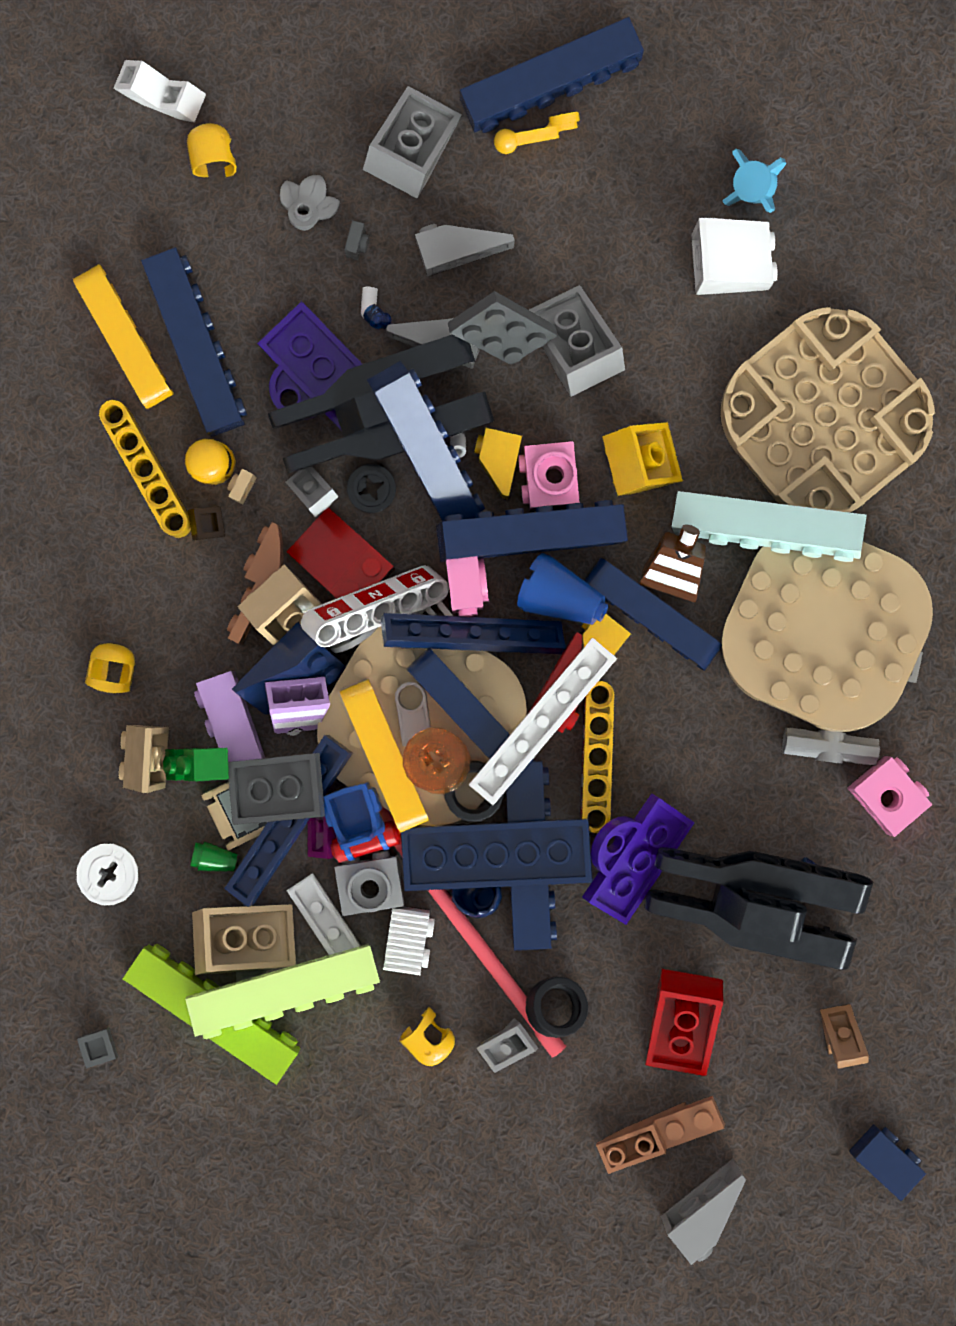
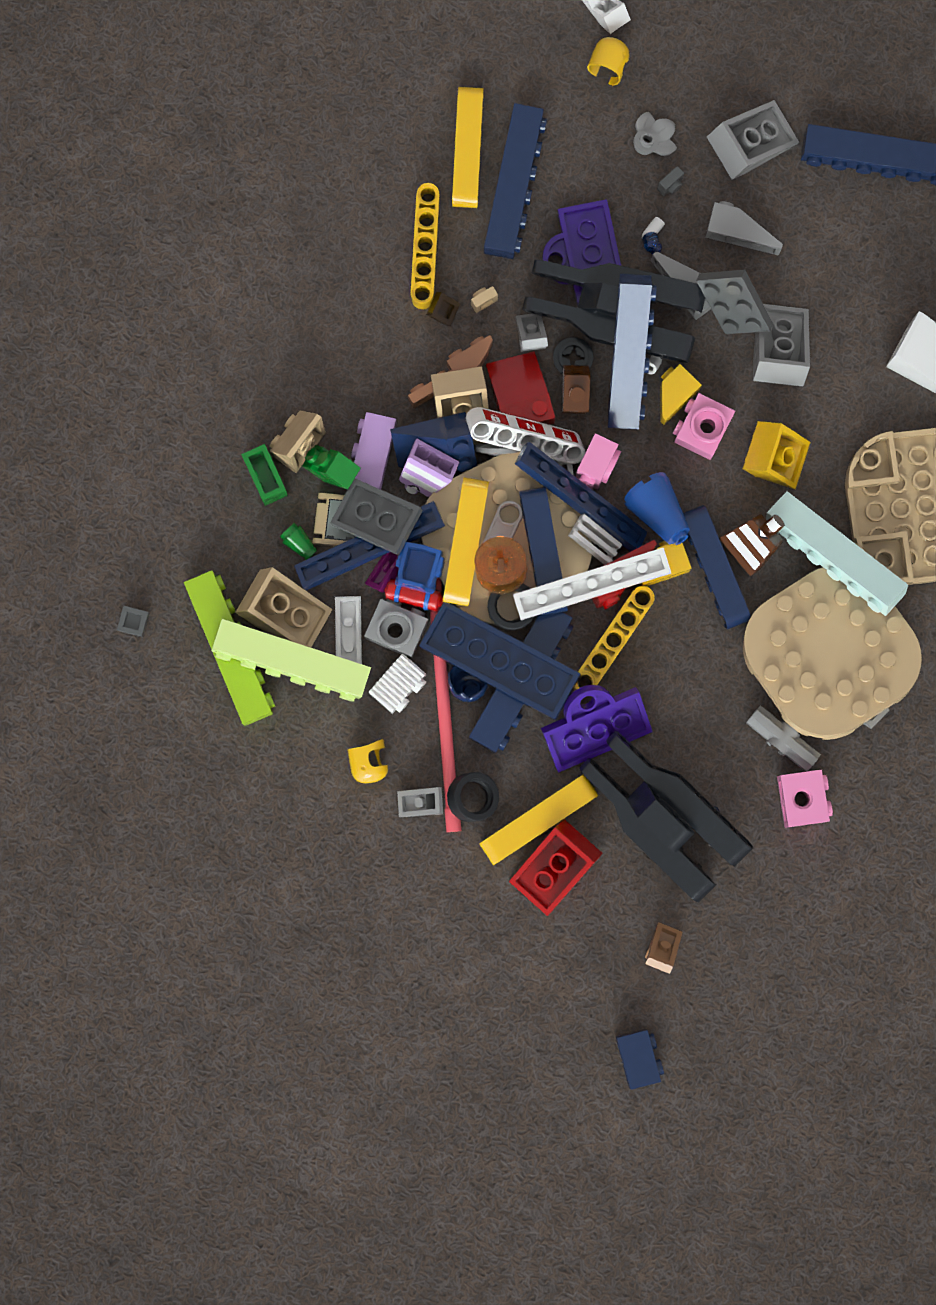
camera: 35 degrees right, 5 degrees down
(91, 874) = (217, 491): white piece -> none
(99, 663) = (306, 358): yellow helmet -> none
(124, 803) = (263, 473): none -> green brick
(209, 461) = (472, 267): yellow helmet -> none
(395, 521) = (575, 389): none -> reddish brown torso
(507, 140) = (819, 179): yellow piece -> none
(531, 532) = (667, 455): dark blue brick -> none
(538, 666) = (597, 536): none -> white tile
(637, 987) = (538, 819): none -> yellow beam
(659, 1132) = (489, 934): nougat slope -> none
(701, 1215) = (479, 1009): light grey slope -> none

